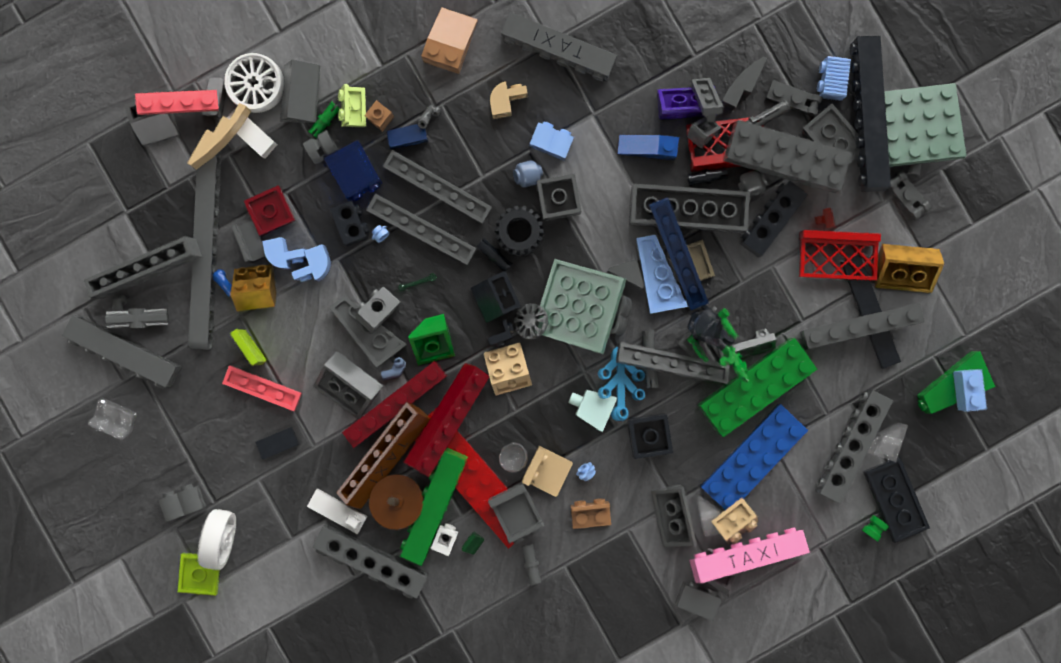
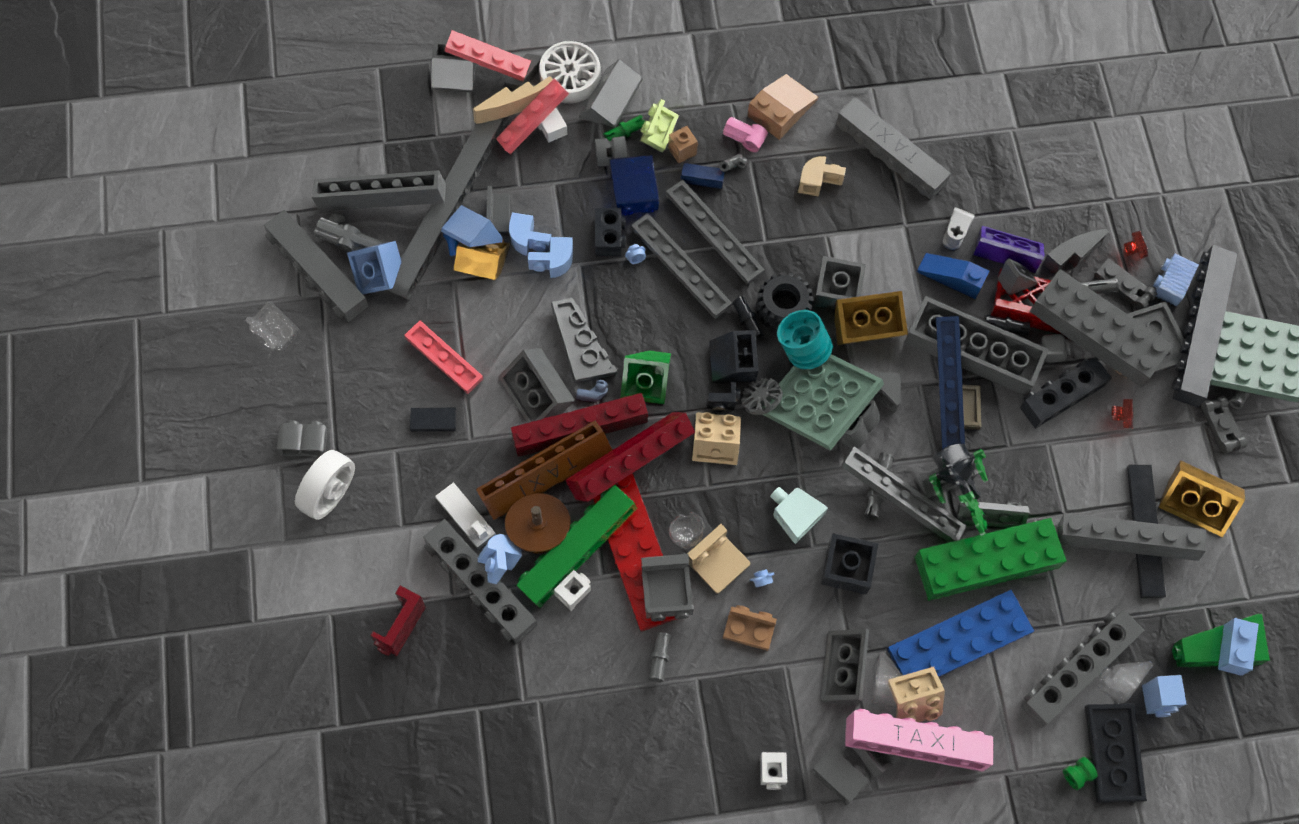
camera: 20 degrees right, 20 degrees down
(171, 335) = (375, 267): none -> medium blue slope
(196, 579) = (281, 524): lime tile -> none
(235, 273) = (471, 228): none -> medium blue slope
(241, 143) = (532, 116): none -> coral plate
(248, 347) = (450, 307): lime tile -> none
(269, 210) = (531, 191): dark red plate -> none
(327, 602) = (404, 624): none -> dark red panel
(372, 320) = (601, 322): brick -> none
(375, 539) = (499, 556): none -> light blue brick
(432, 277) = (672, 317): clear green hinge -> none
(433, 83) = (750, 136): none -> bright pink piece
(472, 543) = (602, 608): dark green slope -> none
(527, 173) = (813, 250): sand blue head -> none
(539, 262) = (805, 339): none -> teal wheel
(551, 140) = (851, 231): light blue brick -> none
(595, 221) = (870, 318): none -> pearl gold slope
(622, 381) = (839, 496): dark azure plant -> none
(638, 99) = (957, 228): none -> light grey piece
(652, 623) = (779, 763): none -> white brick
(659, 283) = (917, 410): light blue wing -> none
(707, 98) = (1033, 245): dark grey hinge -> none
(793, 59) = (1137, 246): none -> clear red tile
(839, 238) = (1129, 437): red fence -> none
(922, 447) = (1164, 695): none -> light blue brick

